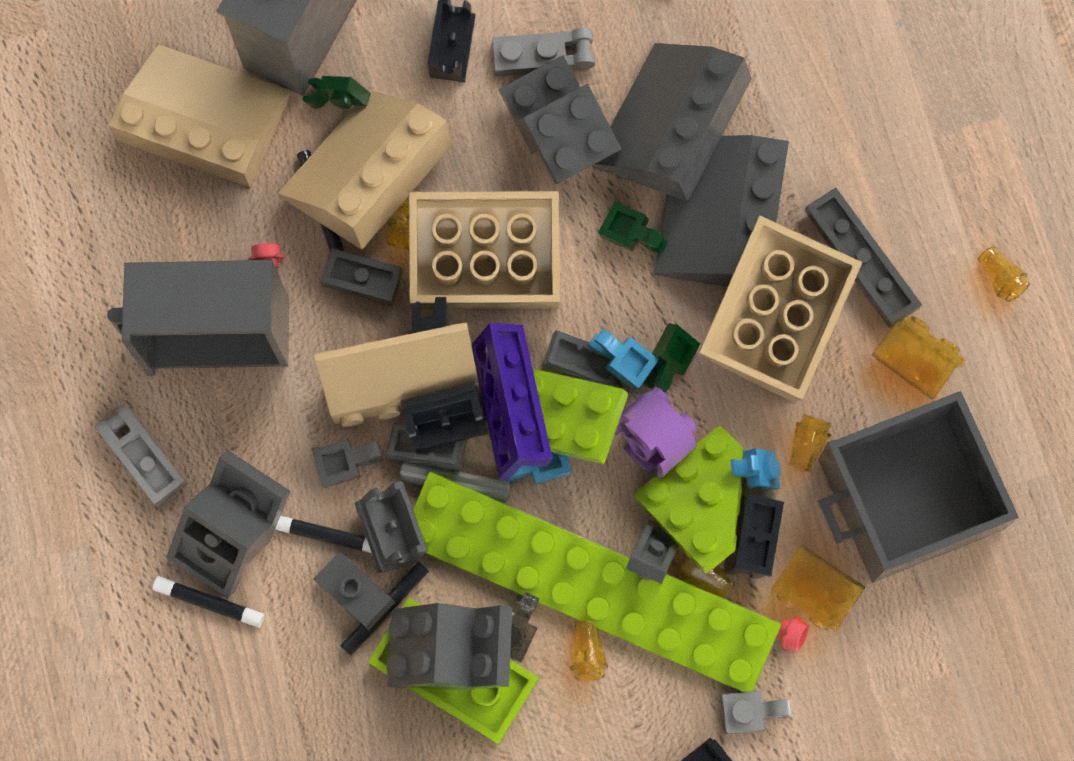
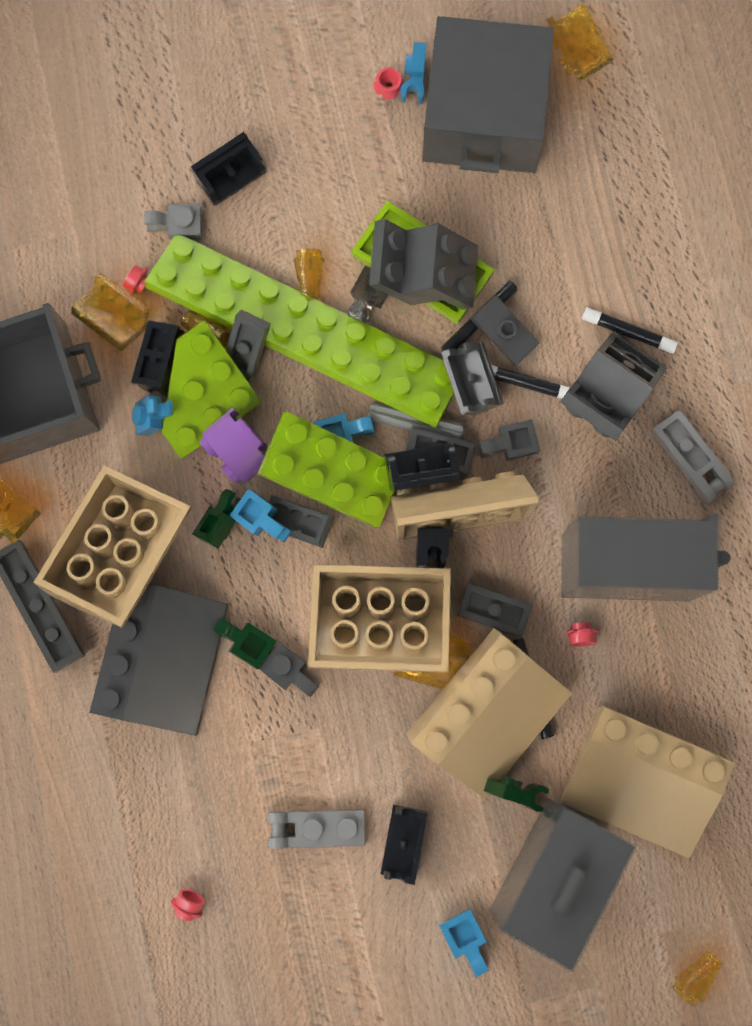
camera: 175 degrees left, 5 degrees up
(513, 398) = (360, 477): dark purple fence -> none
(559, 119) = (303, 750): dark grey bracket -> none
(585, 208) = (286, 668): none -> dark grey plate
(676, 116) = (197, 749): dark grey slope -> none
(809, 440) = (104, 441): clear yellow cone -> none

